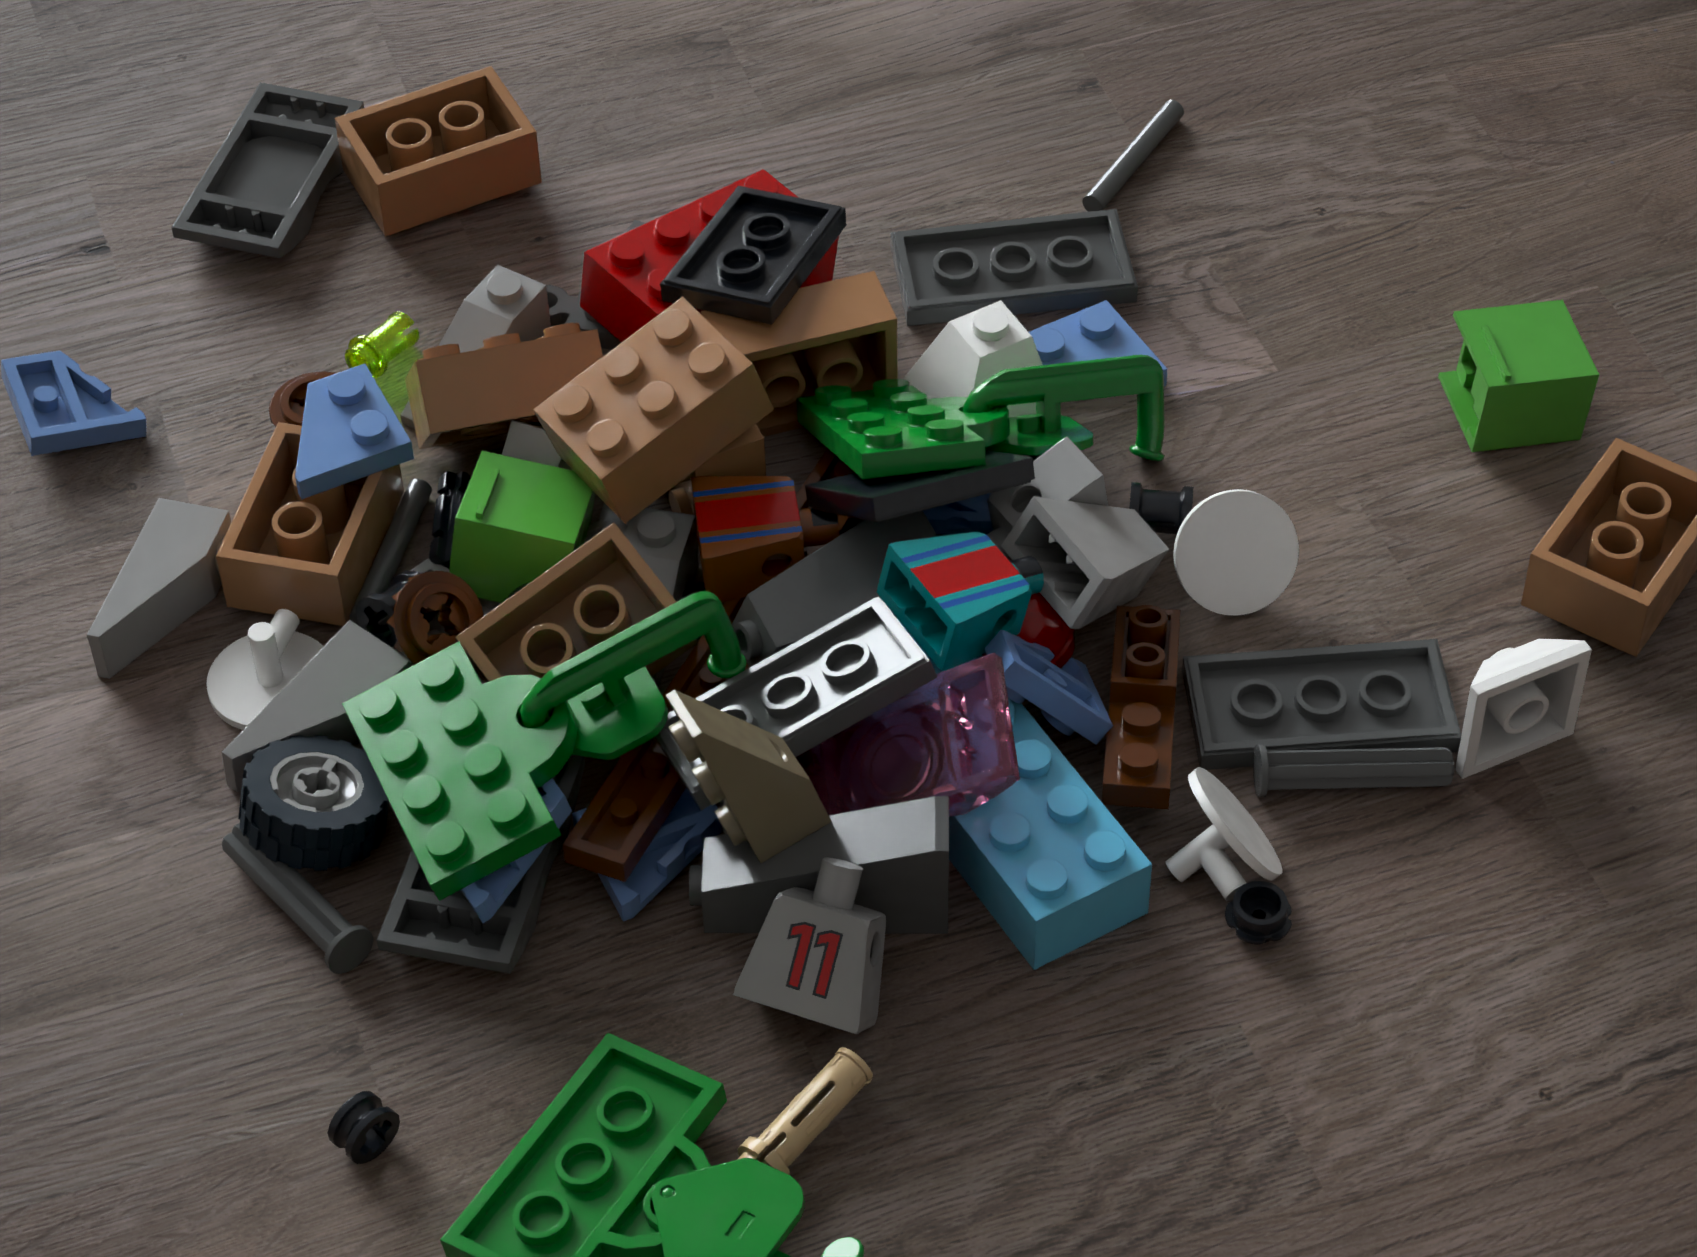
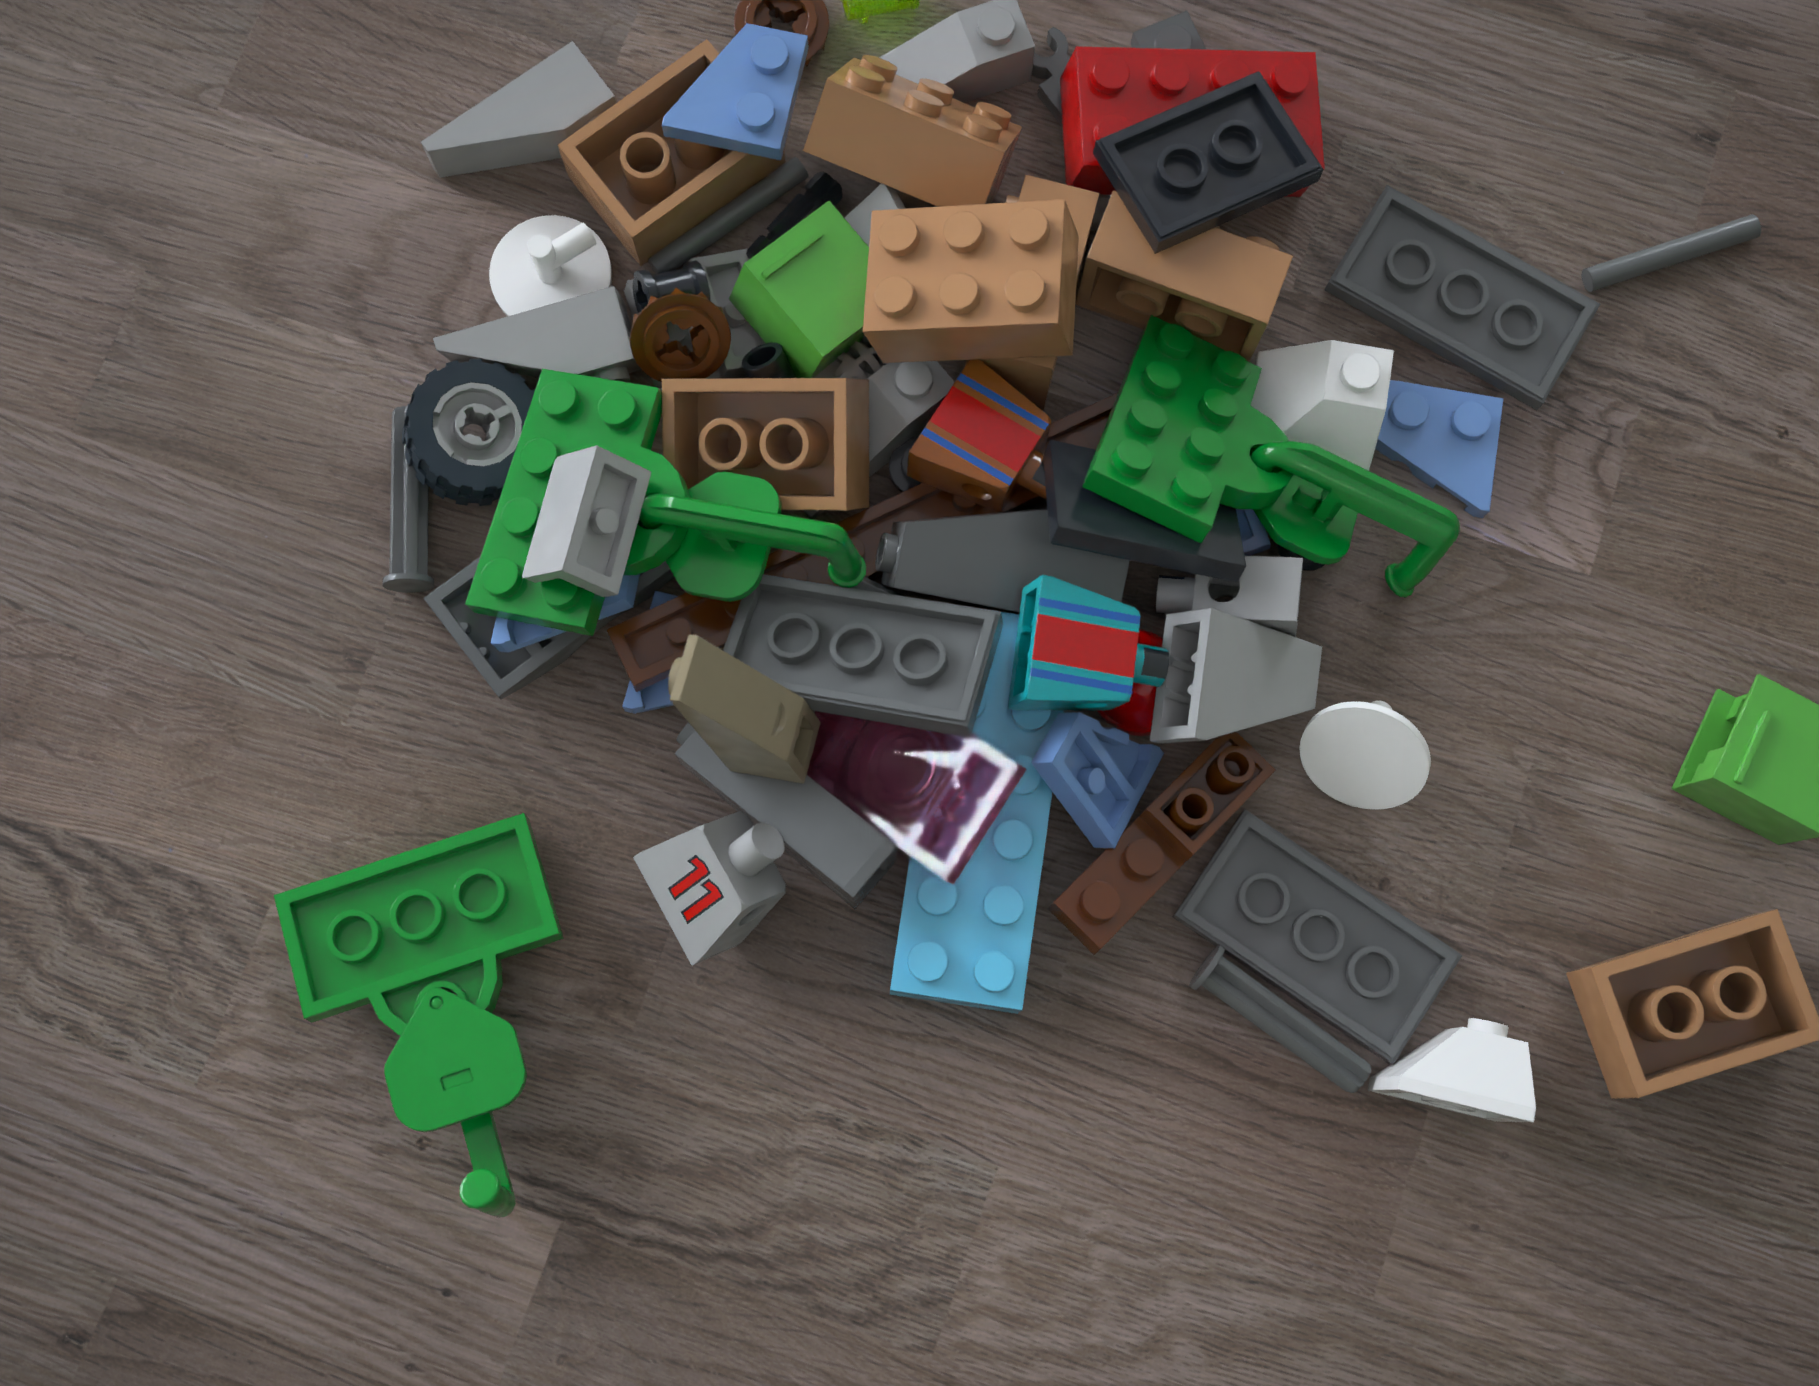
camera: 35 degrees right, 30 degrees up
(363, 1127) = (299, 751): black bush -> none
(485, 737) = (587, 521): none -> light grey panel
(809, 1112) = (656, 988): tan pin -> none
(1161, 508) = (1353, 655): black bush -> none
(1230, 826) = (1124, 1015): white shield -> none
(1262, 900) = (1107, 1098): black plate -> none

